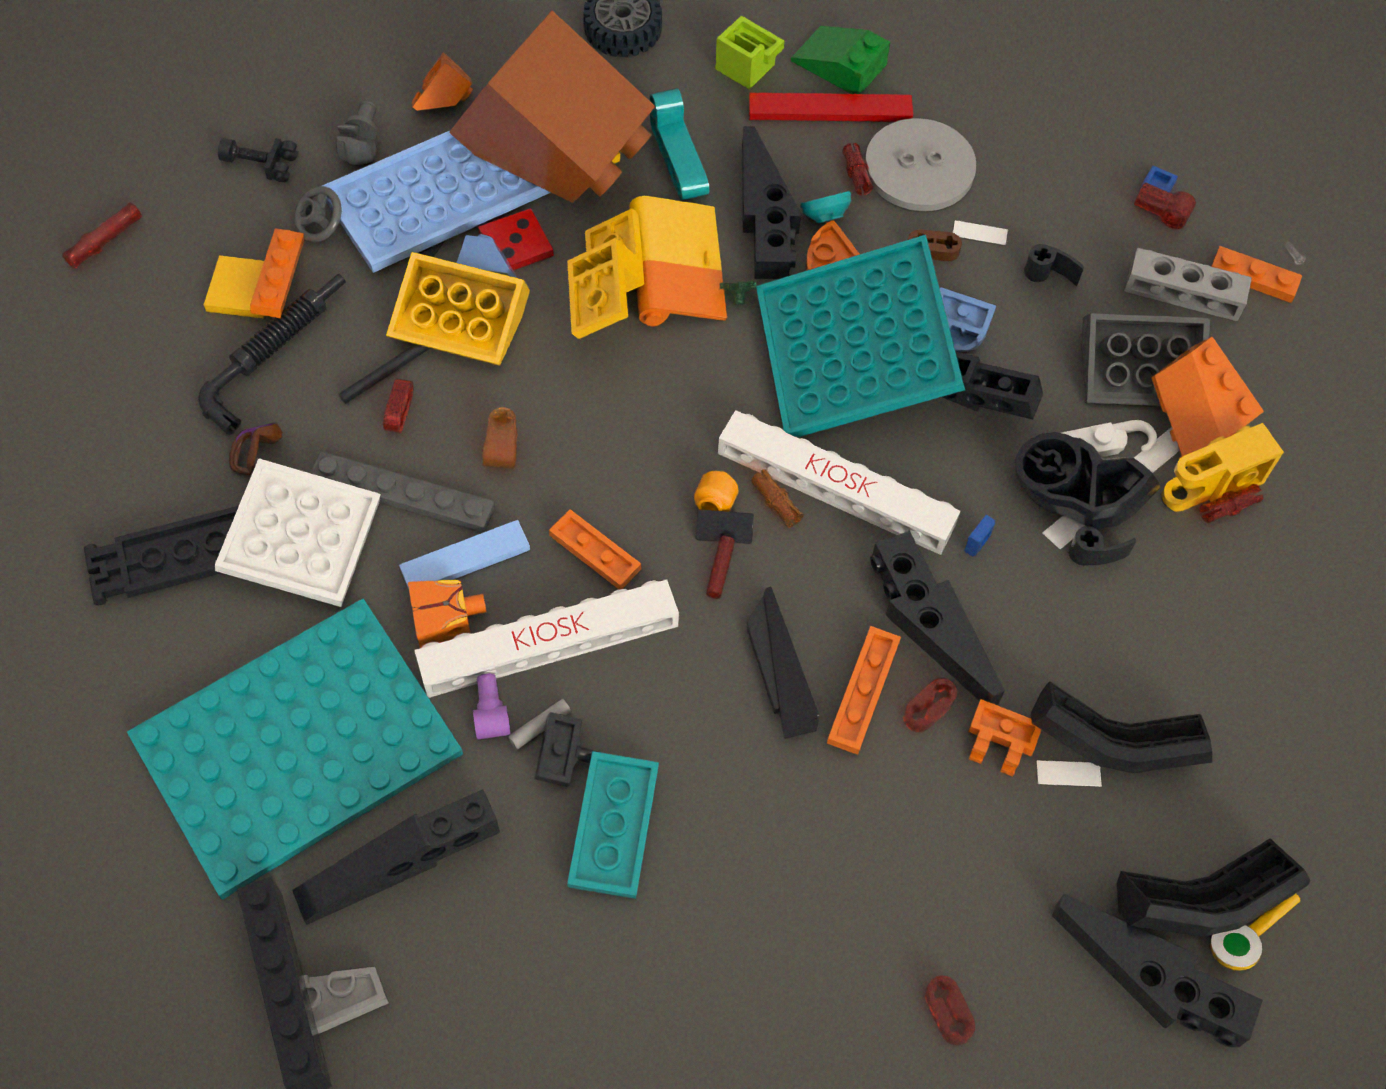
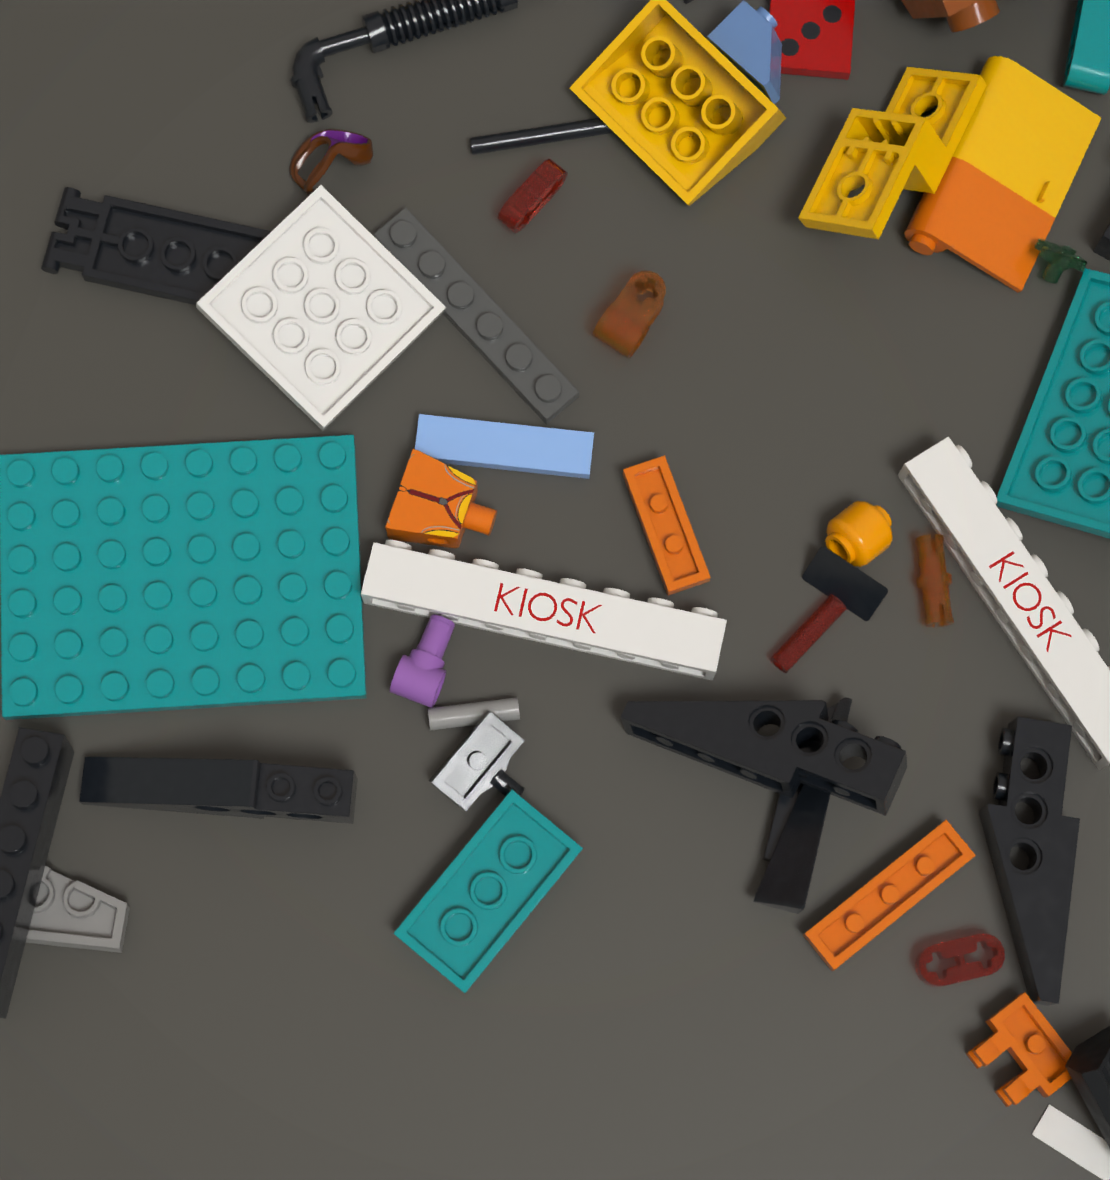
camera: 30 degrees right, 15 degrees up
(713, 648) = (727, 739): none -> black brick

